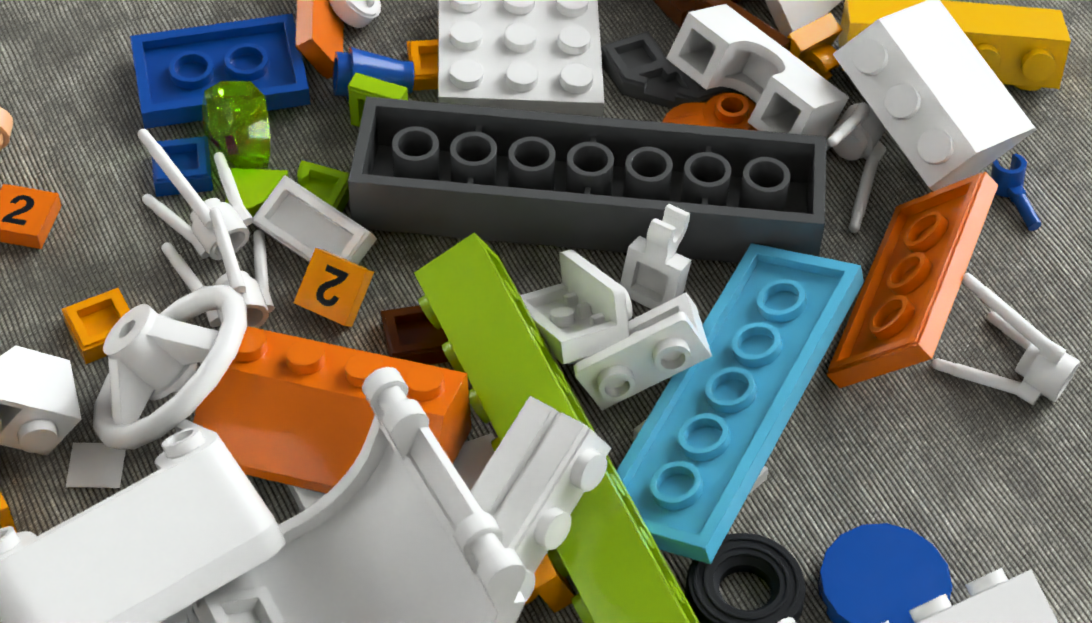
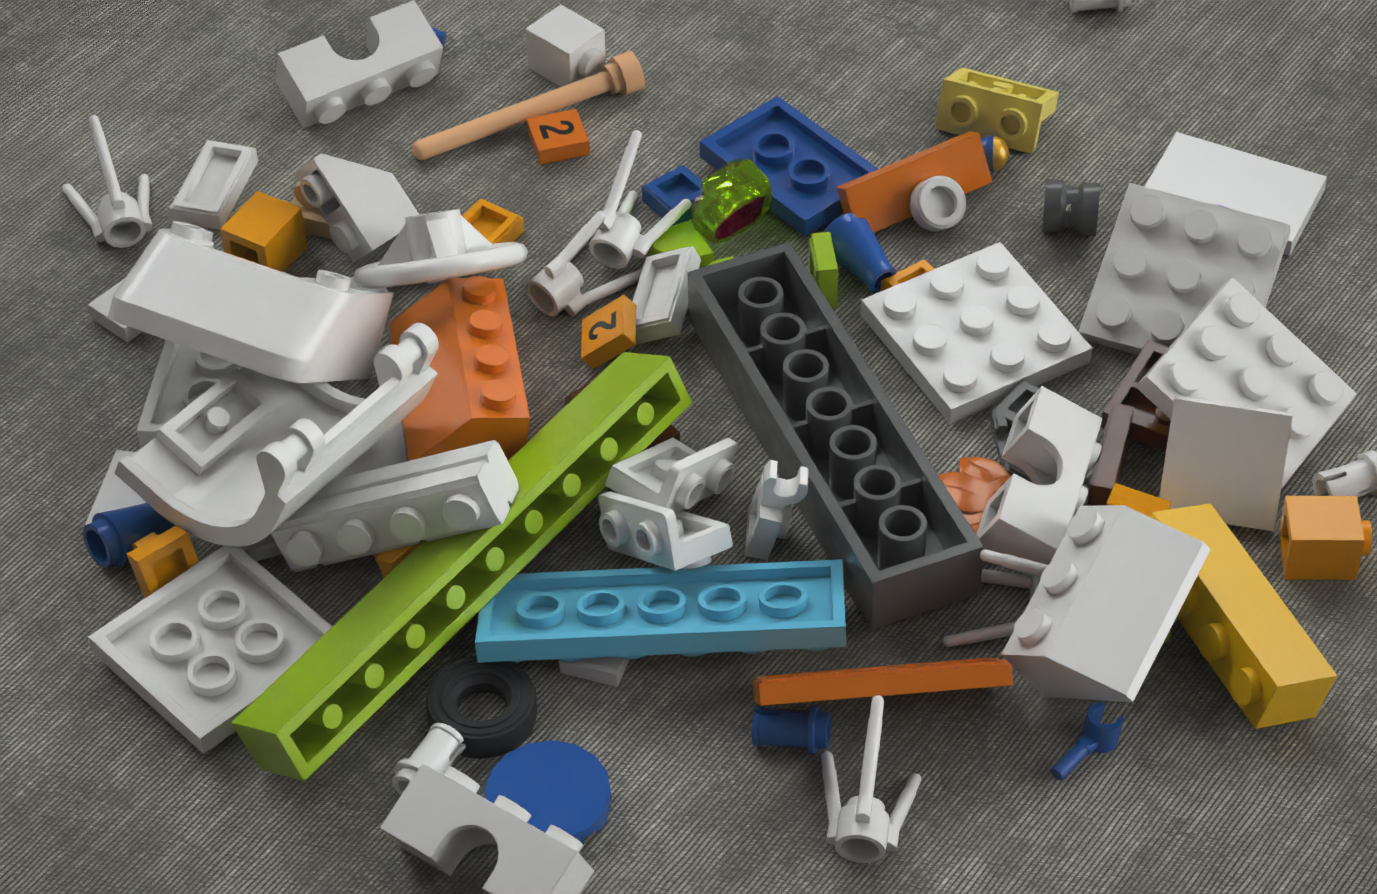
camera: 65 degrees right, 5 degrees down
(902, 381) = (792, 728): none -> blue pin

